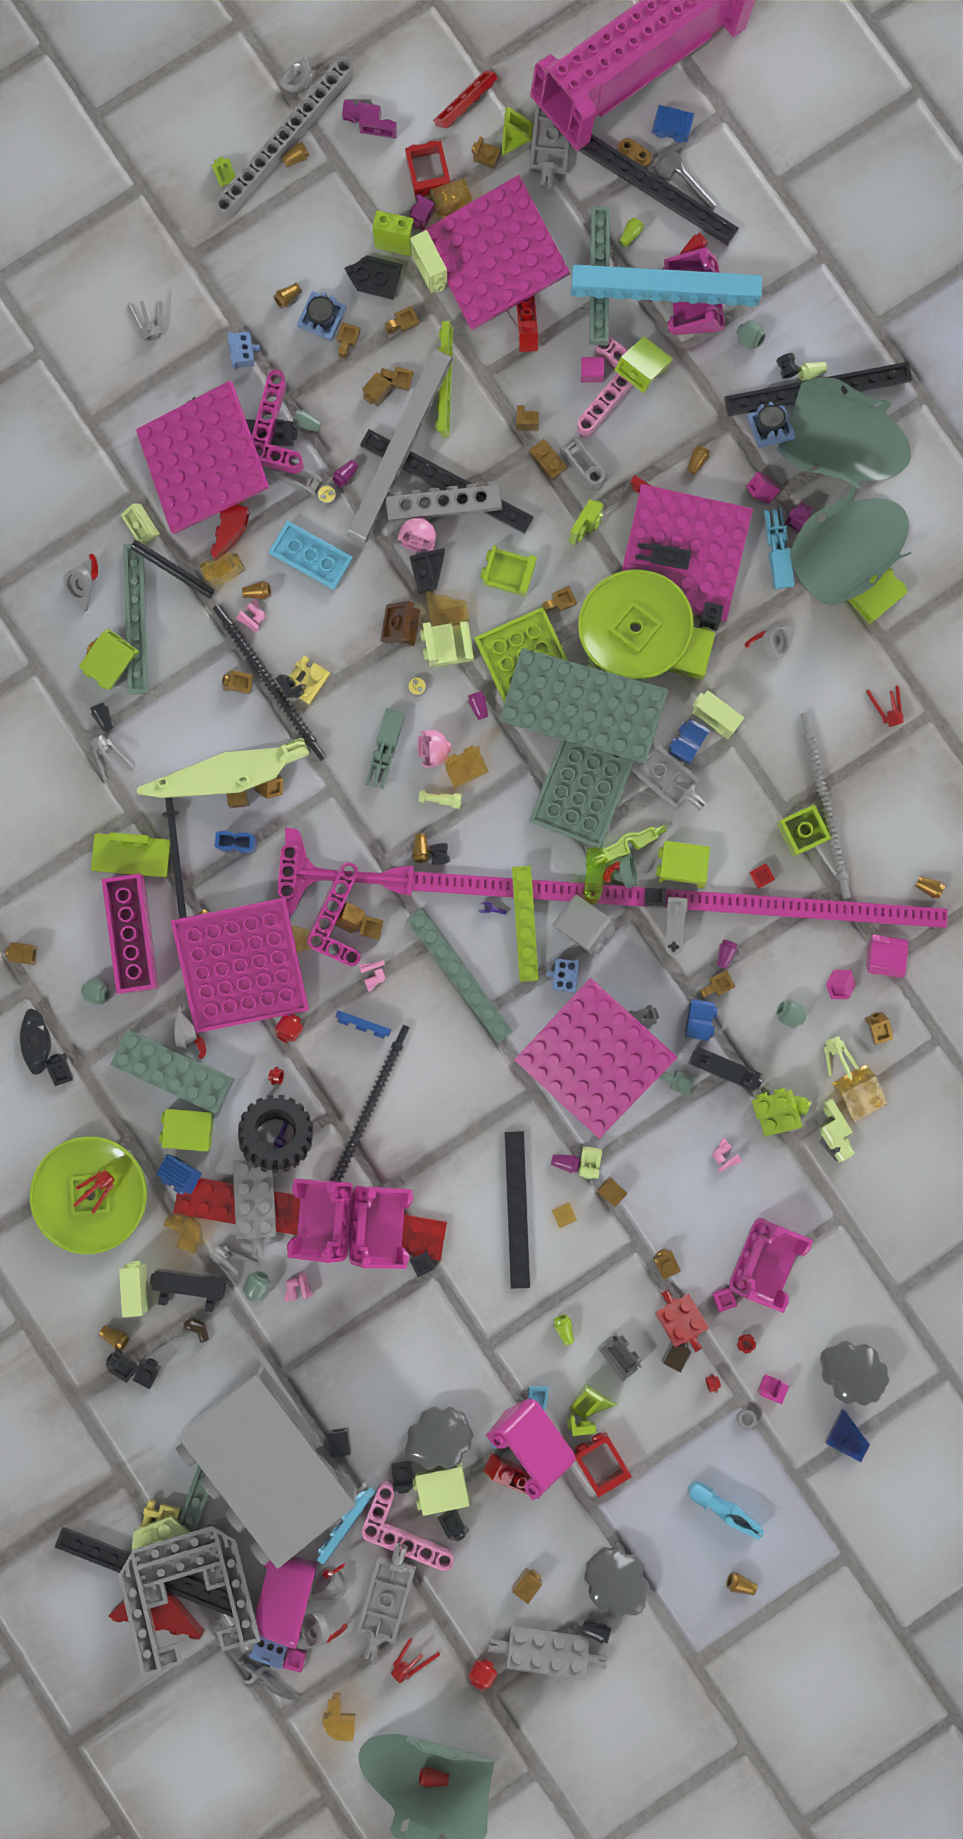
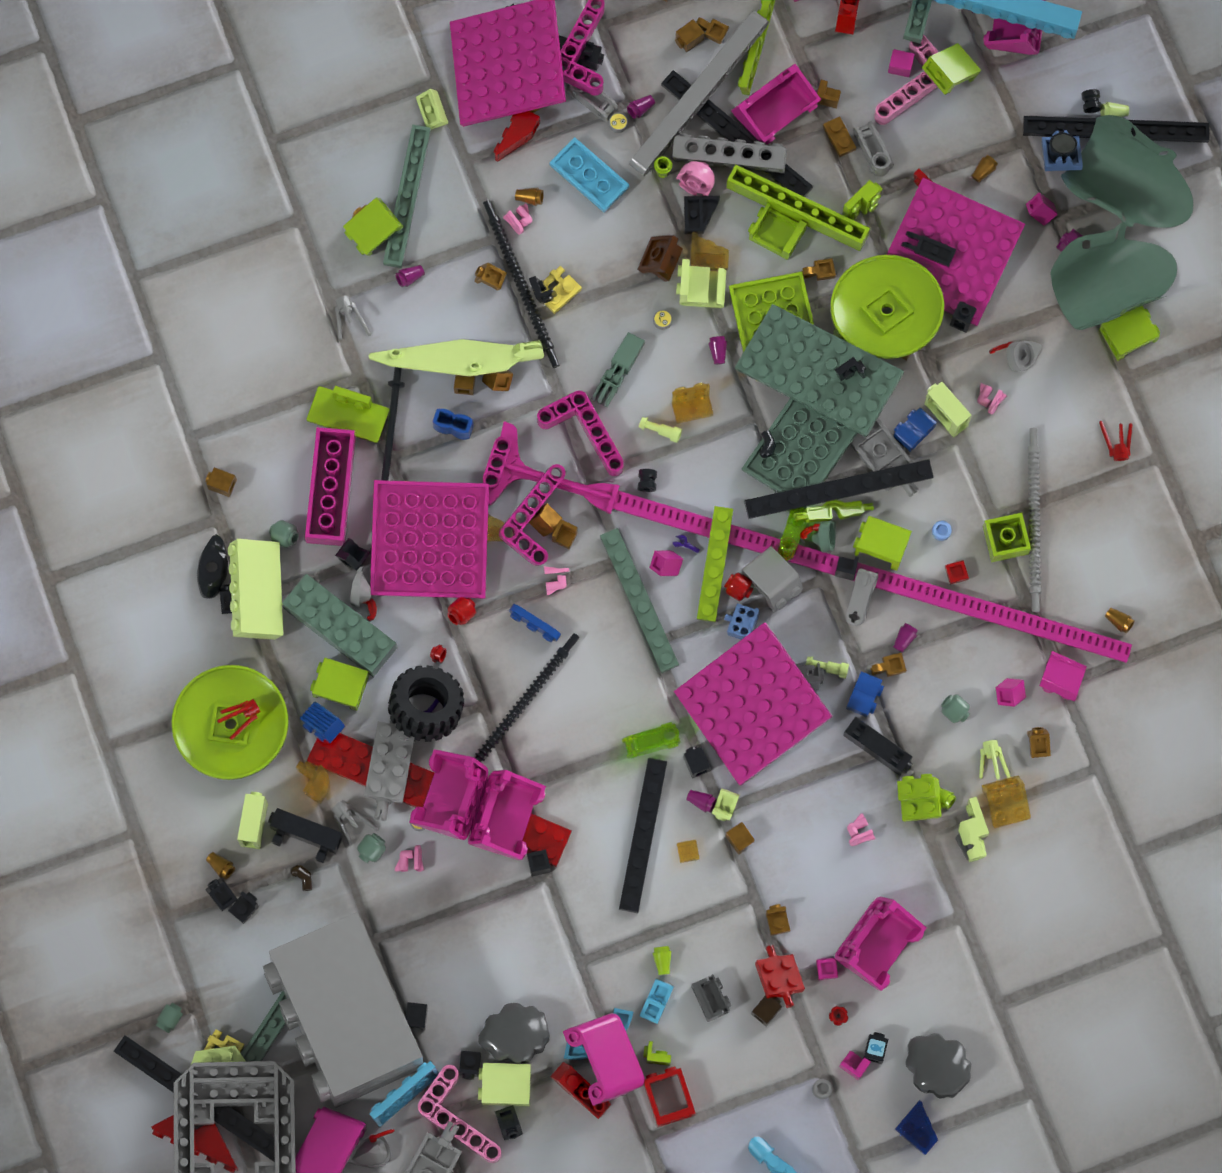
camera: 10 degrees right, 10 degrees down
(79, 582) = (361, 150): light grey piece -> none
(81, 1056) = (255, 589): none -> yellowish green brick
(100, 1500) = (169, 1017): none -> sand green brick
(102, 716) = (352, 278): black cone -> none
(157, 699) = (409, 275): none -> magenta cone
(168, 996) = (352, 555): none -> black panel
(172, 569) = (454, 157): black axle -> none
(223, 569) = (502, 169): clear yellow brick -> none
(306, 421) = (615, 50): sand green cone -> none
(369, 812) = (589, 426): none -> dark pink beam
(381, 527) = (663, 166): none -> lime cone
(420, 849) = (629, 474): pearl gold cone -> none
(433, 748) = (664, 379): bright pink cylinder -> none
(477, 933) = (666, 563): none -> dark pink panel
(479, 440) = (776, 104): none -> dark pink windscreen
(504, 1115) = (651, 740): none -> clear neon green piece
(523, 542) = (798, 207): none -> lime brick
(551, 794) = (769, 446): none -> black arm
(552, 1125) = (696, 761): none -> black brick
(553, 941) = (738, 586): none -> red head
(568, 1370) = (656, 1001): none -> medium azure slope
(590, 1402) = (672, 1036): lime slope -> none
(613, 701) = (849, 368): none -> black bracket
(630, 822) = (838, 489): none -> black plate
(661, 1000) = (830, 667): none -> yellowish green piece
(680, 1082) = (831, 751): sand green plate -> none
(697, 655) = (939, 350): lime panel -> none
(713, 1383) = (796, 1046): red plate -> none
(737, 836) = (941, 530): none -> light blue tile
(748, 686) = (985, 391): none -> bright pink piece
(751, 334) = (1062, 64): sand green head -> none
(779, 558) = (1042, 281): medium azure arm -> none
(789, 1368) = (876, 1047): none -> brick

